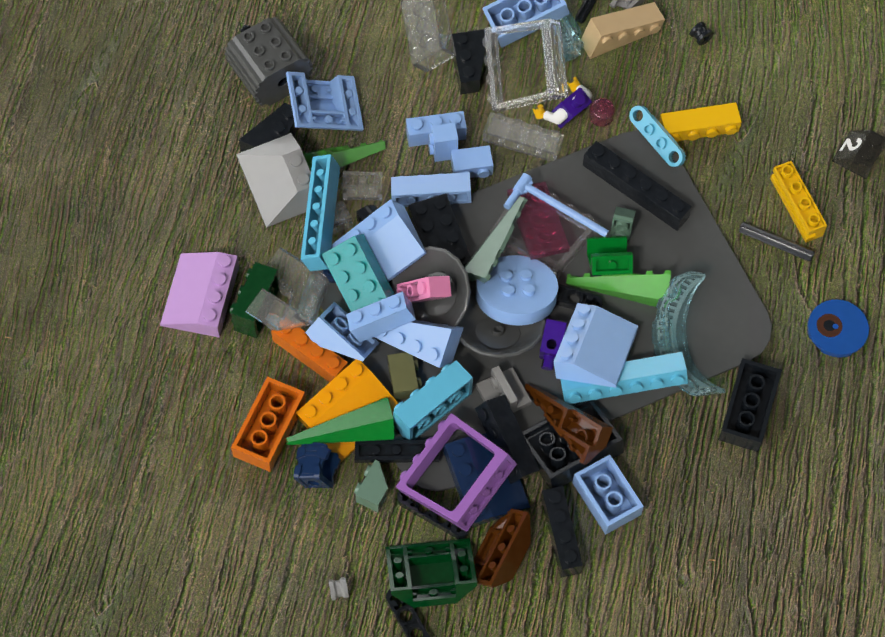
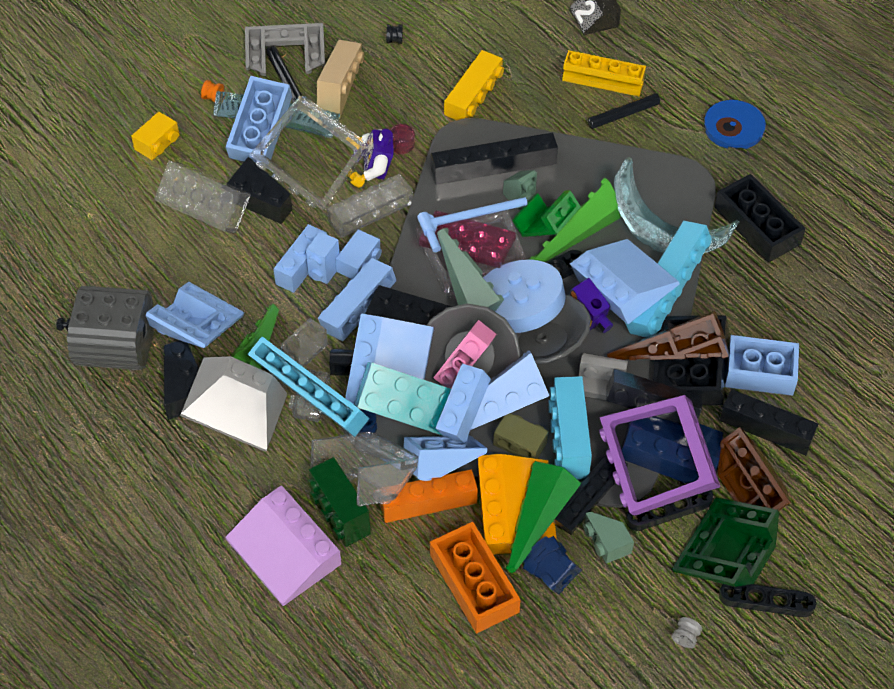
camera: 50 degrees left, 10 degrees down
(657, 136) = (461, 117): medium azure plate -> none

